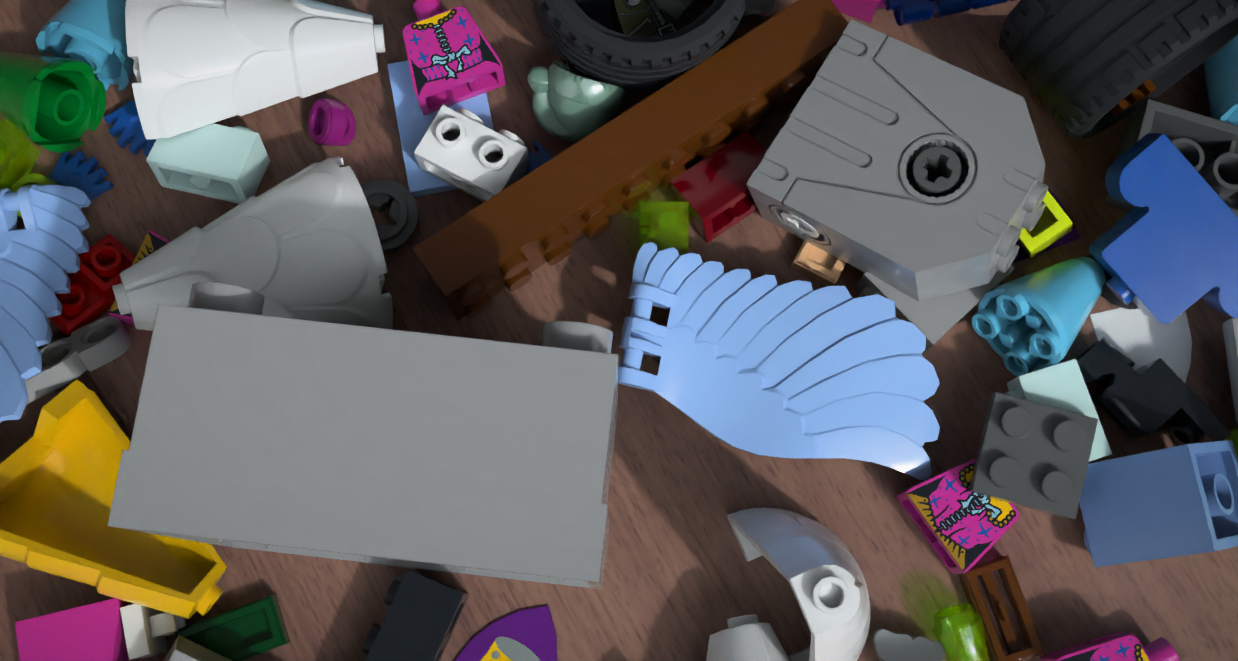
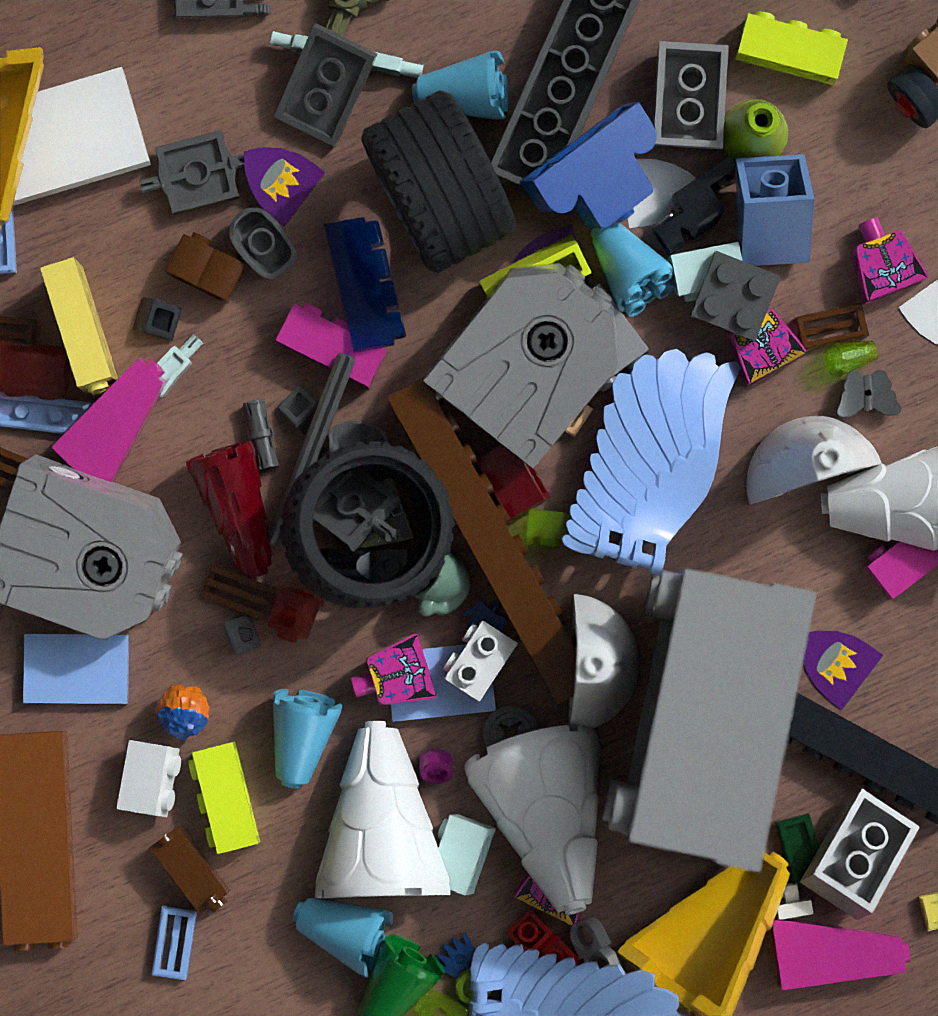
camera: 85 degrees left, 10 degrees up
(130, 128) = (420, 912): blue piece -> none
(478, 285) = (605, 663): none -> white cone

